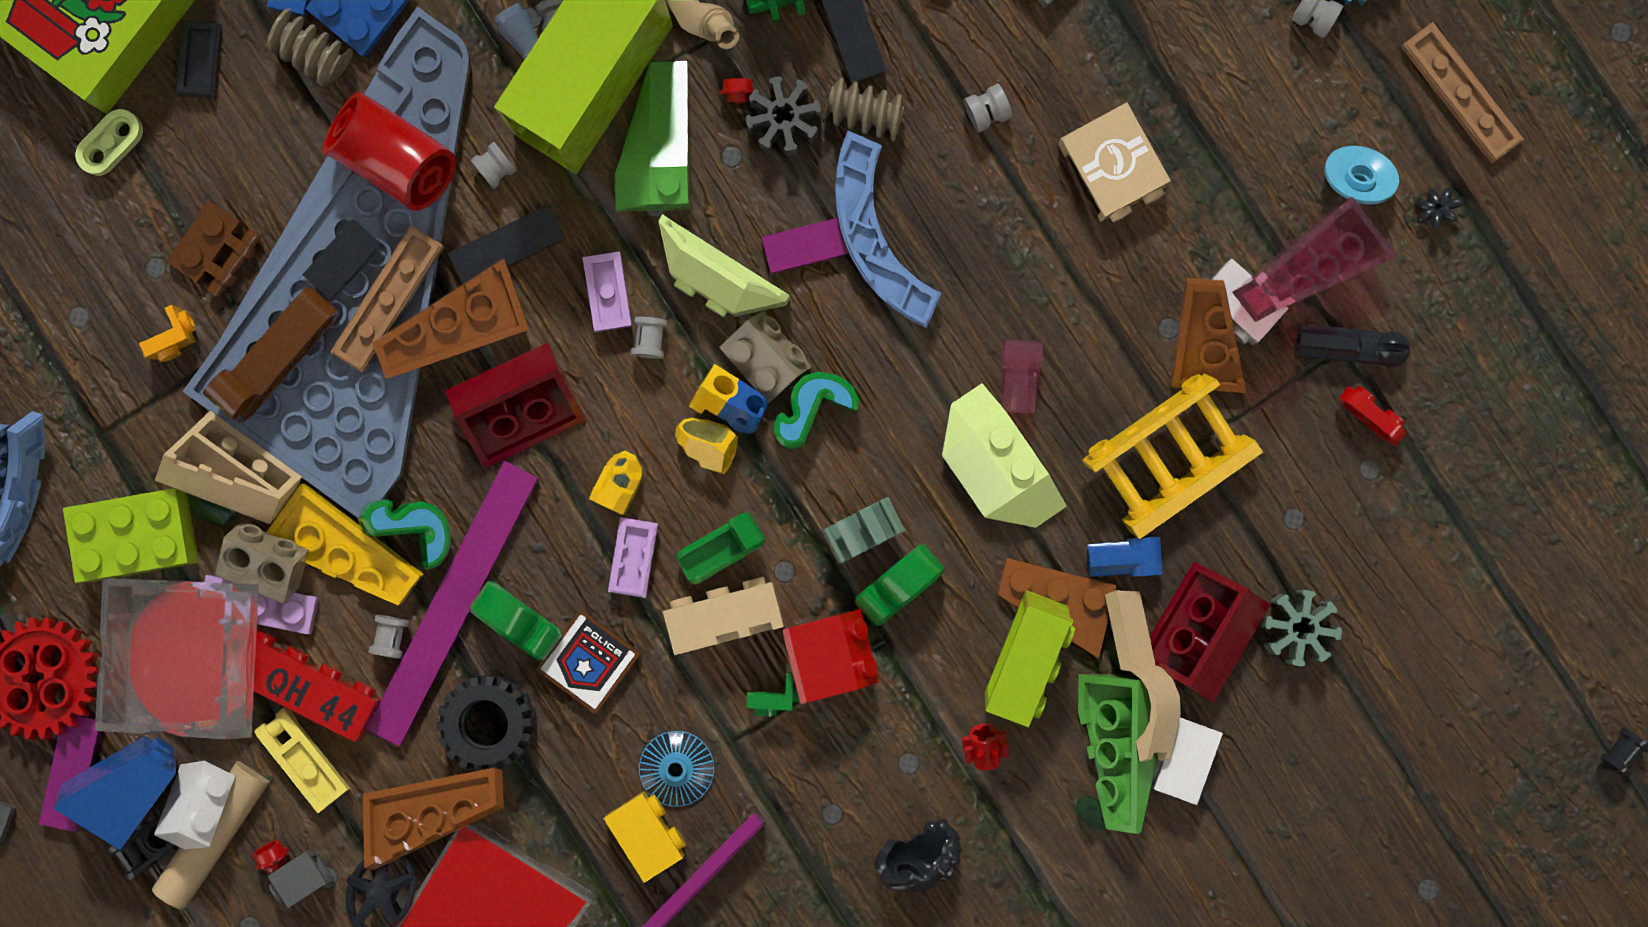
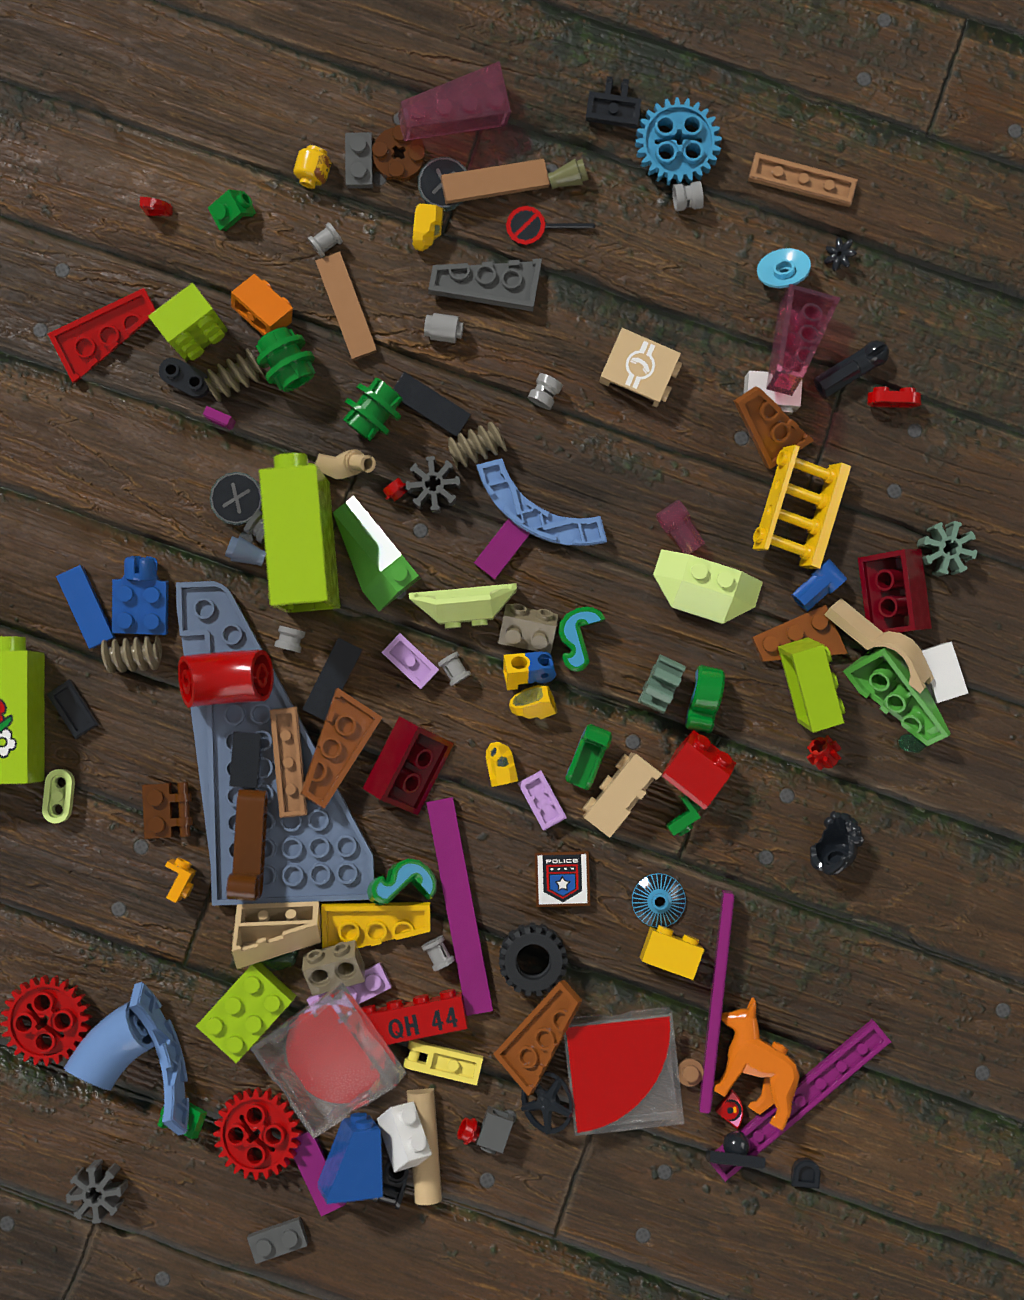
camera: 45 degrees left, 0 degrees up
(515, 620) = (503, 888): green animal -> none

